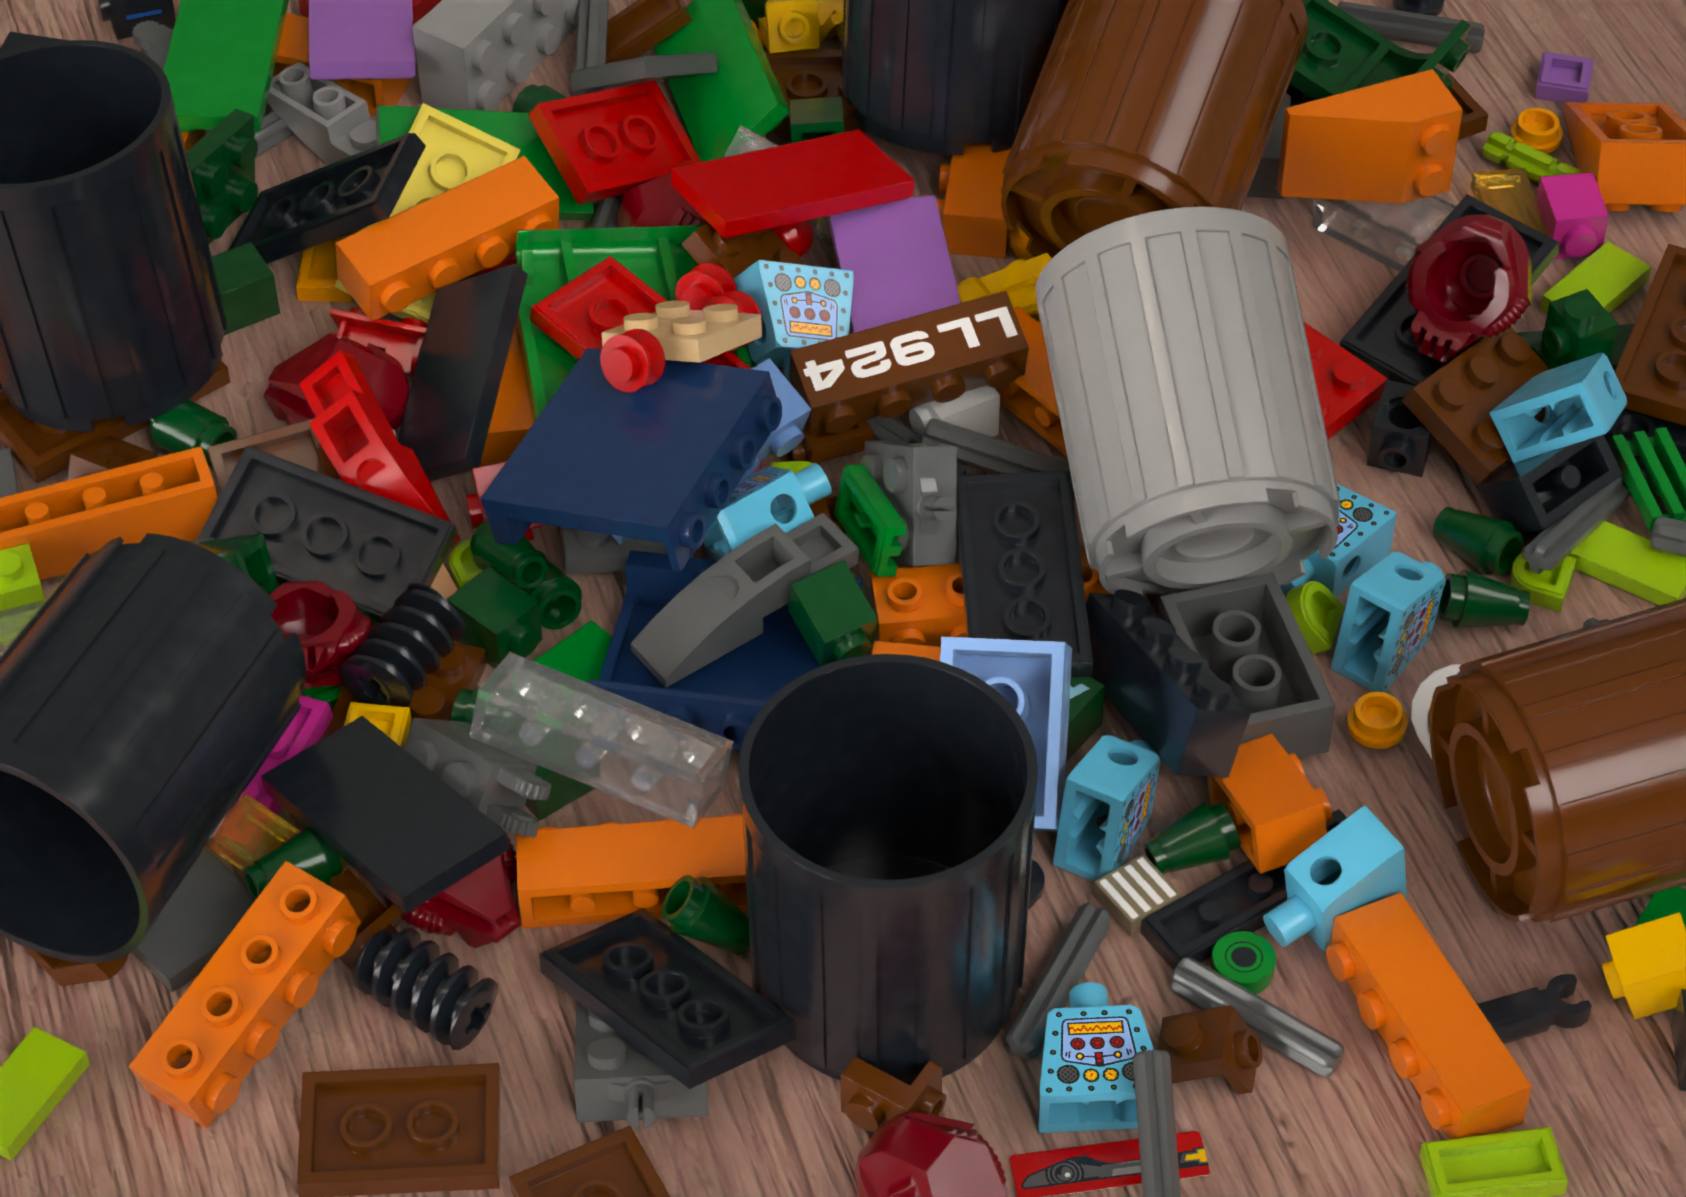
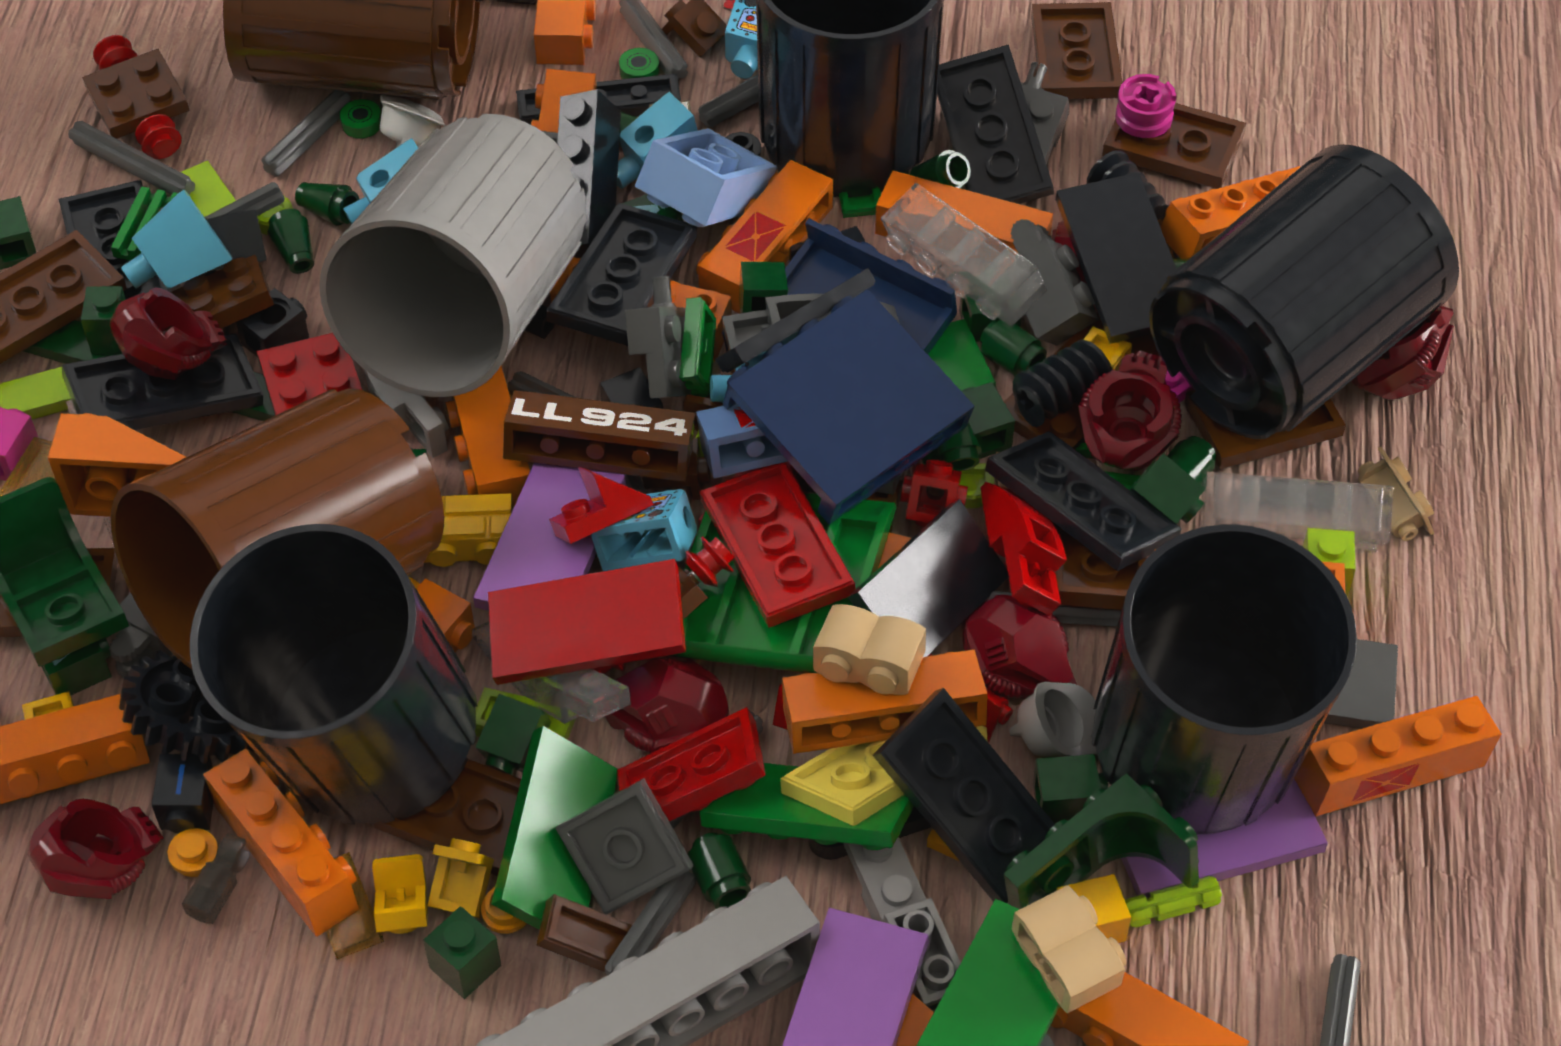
camera: 155 degrees left, 5 degrees up
(193, 71) = (1068, 948): none -> tan brick
(266, 329) = (1056, 720): none -> light grey piece
(444, 1137) = (1145, 106): none -> dark pink wheel
(473, 217) = (869, 649): none -> tan brick
(637, 350) = (764, 469): plate -> none
(744, 508) = (794, 322): none -> black tile
(849, 284) = (607, 505): none -> red slope
(1335, 875) = (561, 46): medium azure torso -> none

